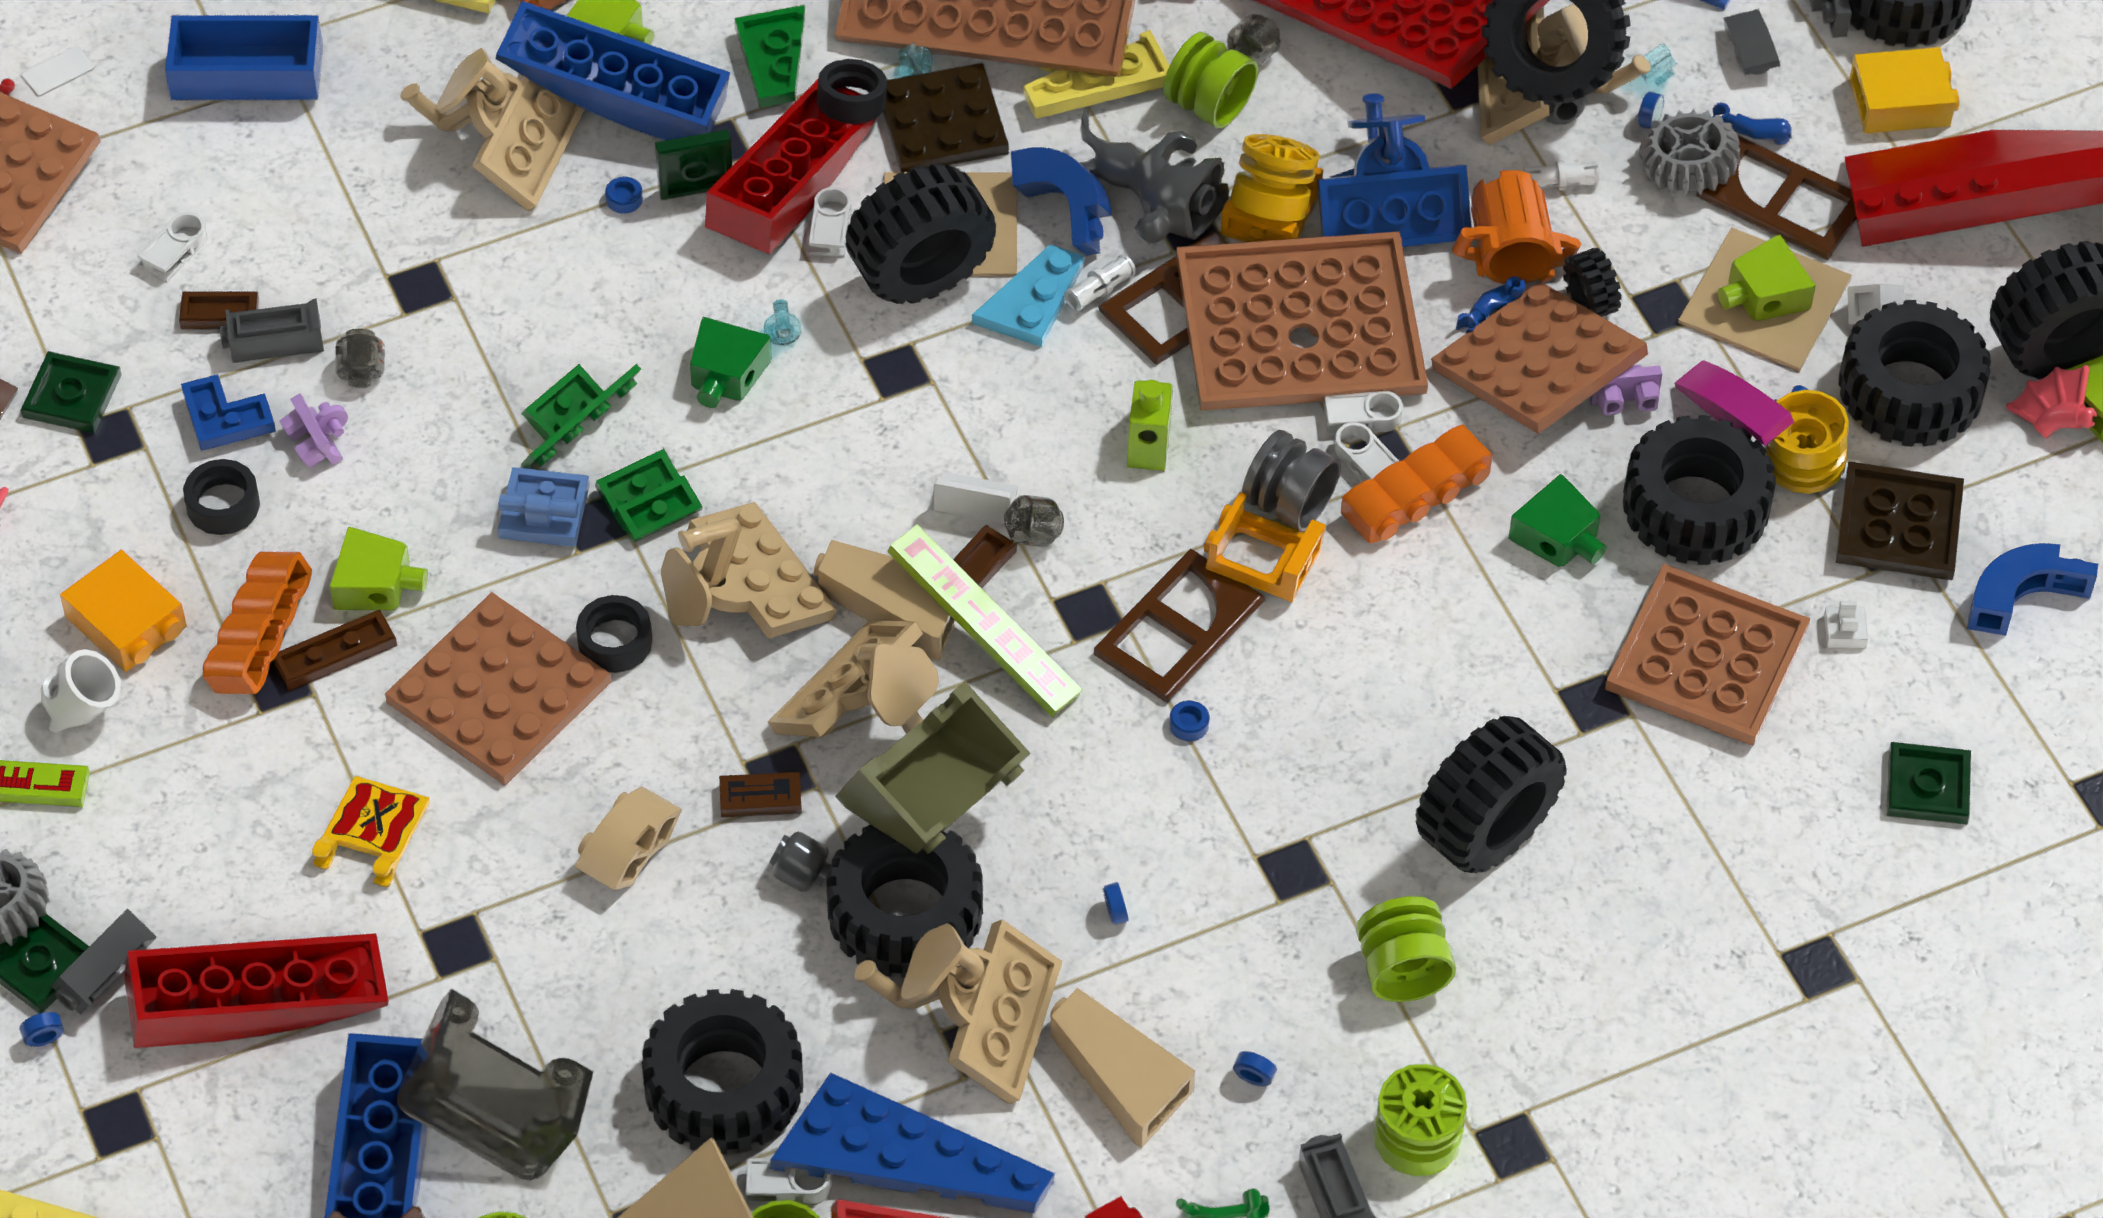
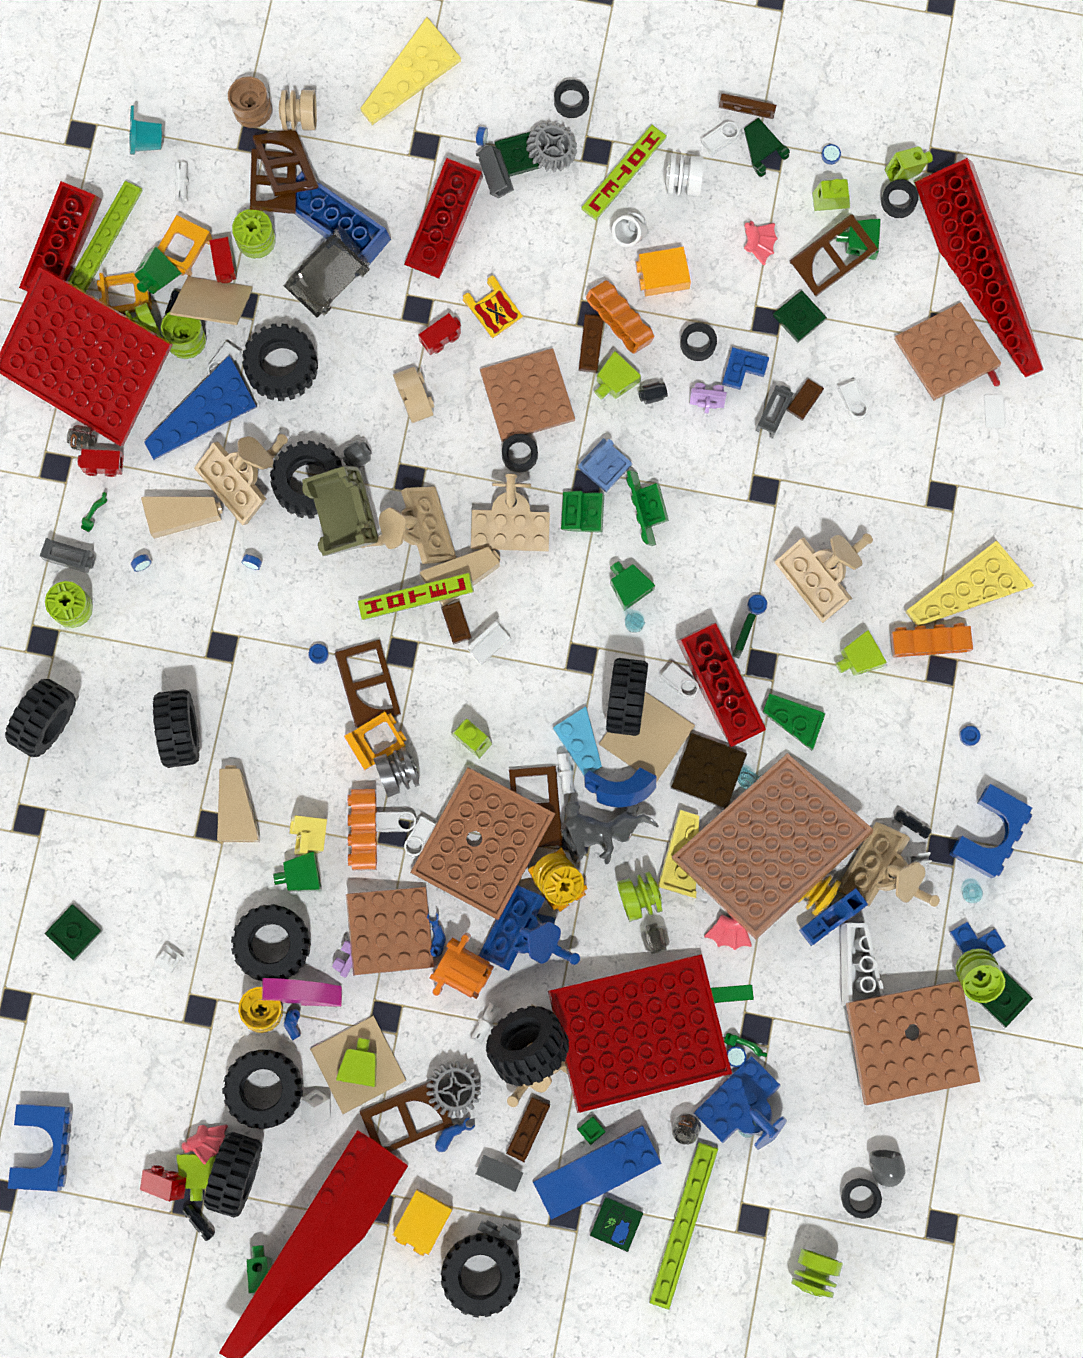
camera: 125 degrees right, 25 degrees up
(244, 57) = (940, 484): blue piece -> none
(359, 357) = (735, 437): clear smoke head -> none
(362, 508) = (653, 392): none -> black brick
(482, 869) = (440, 333): none -> red brick
(614, 74) = (818, 629): blue slope -> none
(760, 794) = (403, 462): reddish brown tile -> none
(848, 107) = (755, 727): black tyre -> none
(1034, 521) = (455, 654): clear smoke head -> none
(1405, 949) = (142, 652): lime wheel -> none
(1493, 538) = (309, 834): none -> light yellow plate
(1543, 669) = (235, 811): none -> tan slope
(1592, 282) = (409, 983): black tyre -> none
(1647, 1002) = (40, 717): none -> black tyre
(1650, 109) = (492, 1093): blue tile -> none
(1661, 65) = (515, 1116): clear light blue plate -> none
(1686, 45) = (528, 1129): none -> reddish brown tile
(1707, 654) = (195, 887): nougat plate -> none
(1900, 520) = (200, 1024): dark brown plate -> none
(2023, 572) = (138, 1049): blue arch -> none

